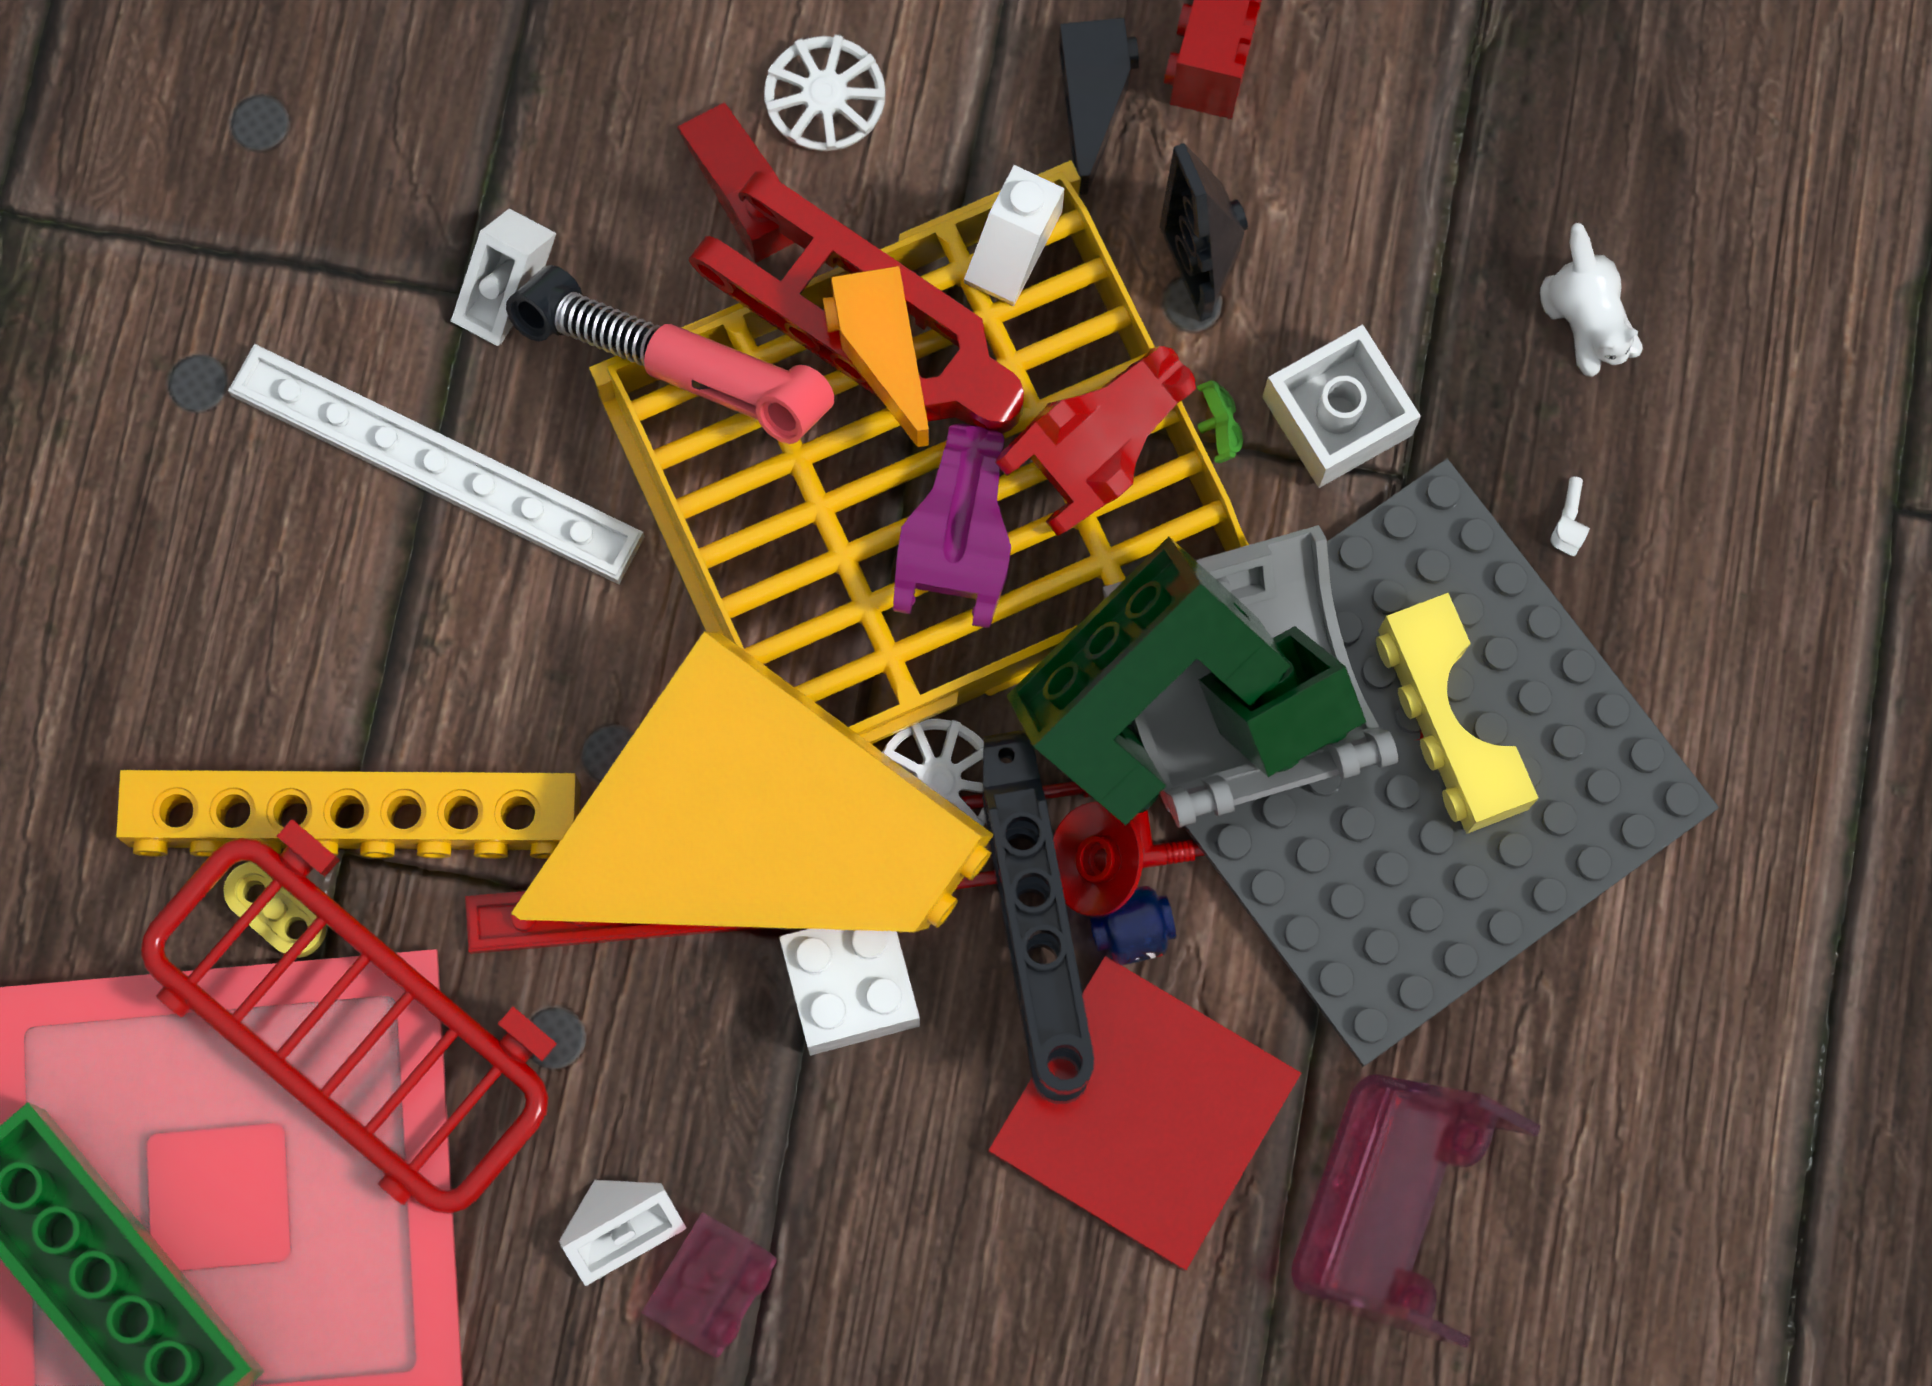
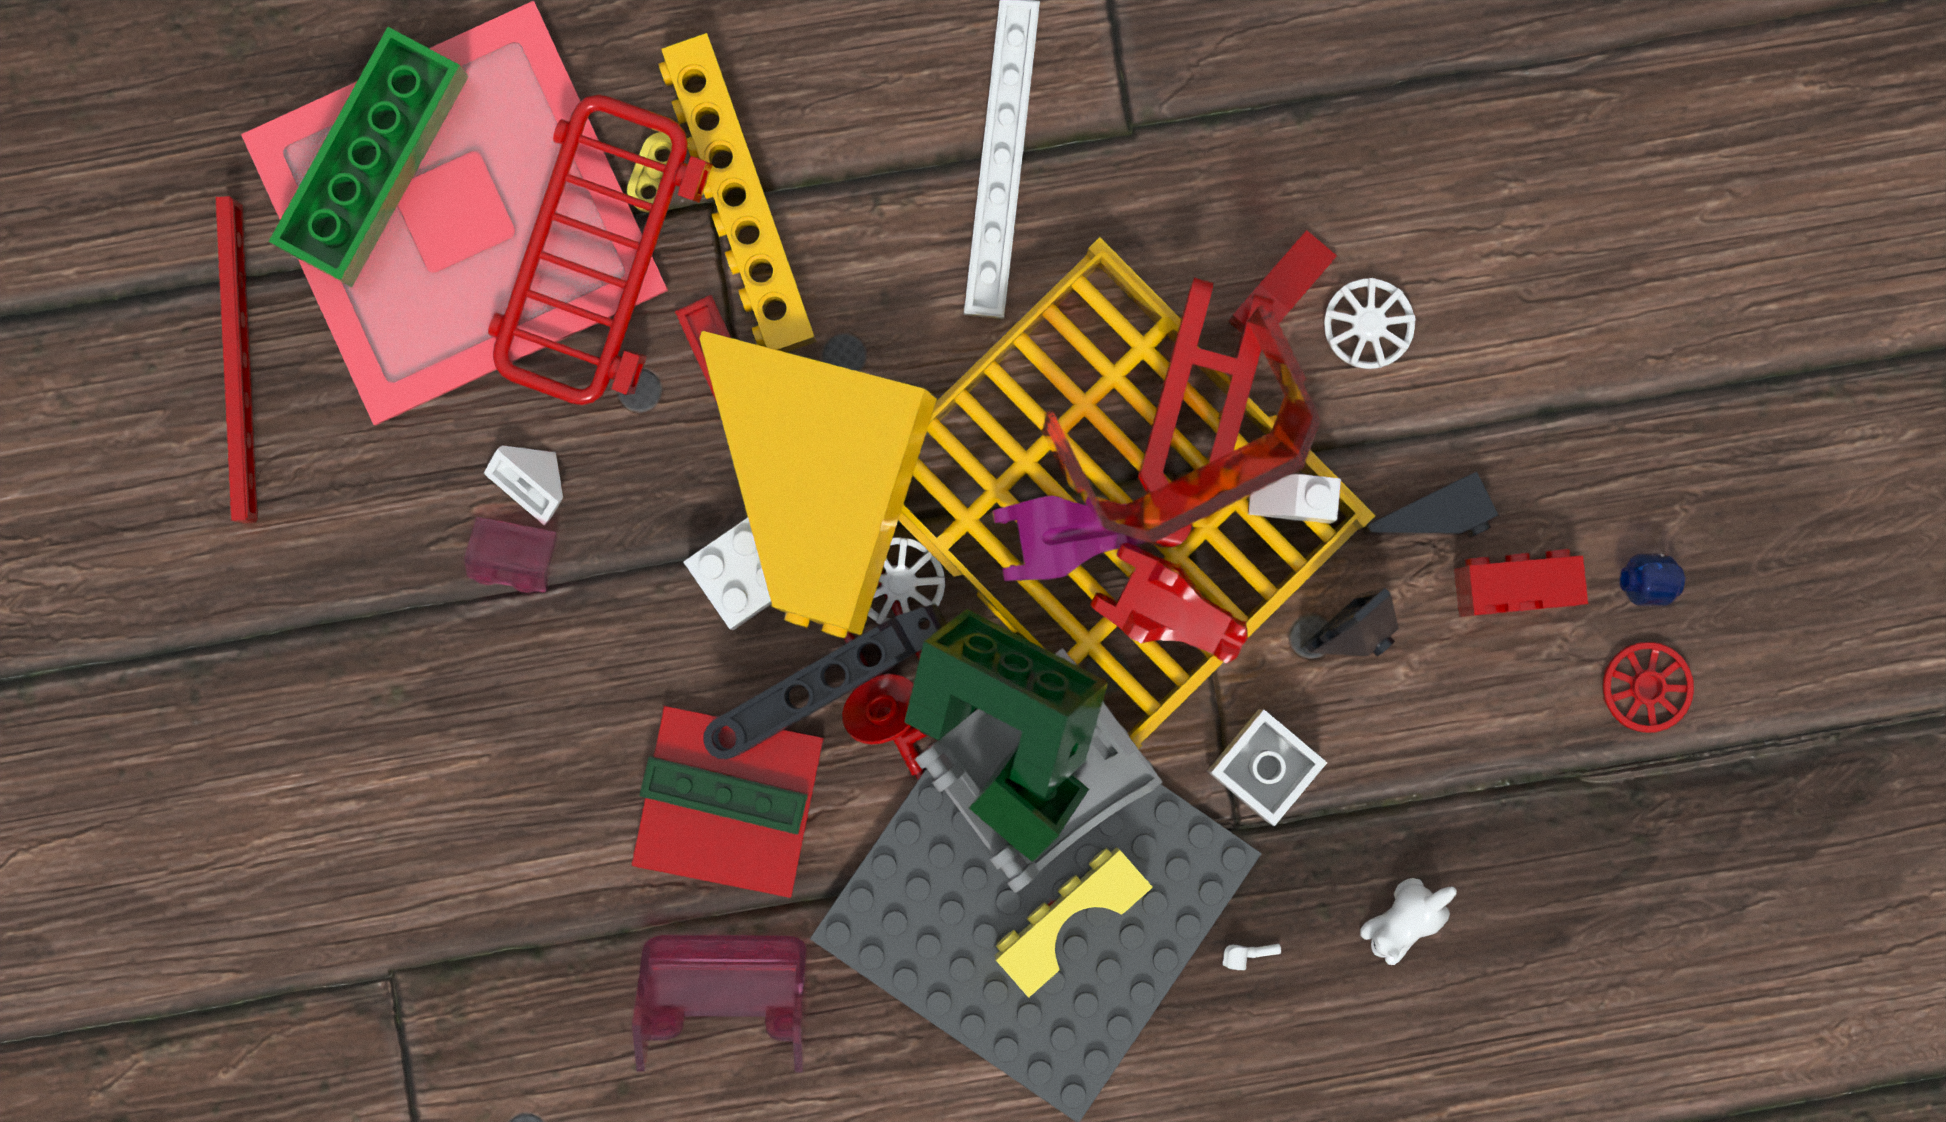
camera: 70 degrees right, 10 degrees up
(503, 260) = (1150, 151): white slope -> none
(779, 399) = (1110, 378): piece -> none
(878, 340) = (1180, 427): light orange slope -> none
(966, 296) = (1221, 480): none -> clear red piece
(1135, 1111) = (723, 795): none -> dark green tile
(1137, 929) = (846, 755): clear blue head -> none
(1228, 432) = (1223, 694): bright green piece -> none

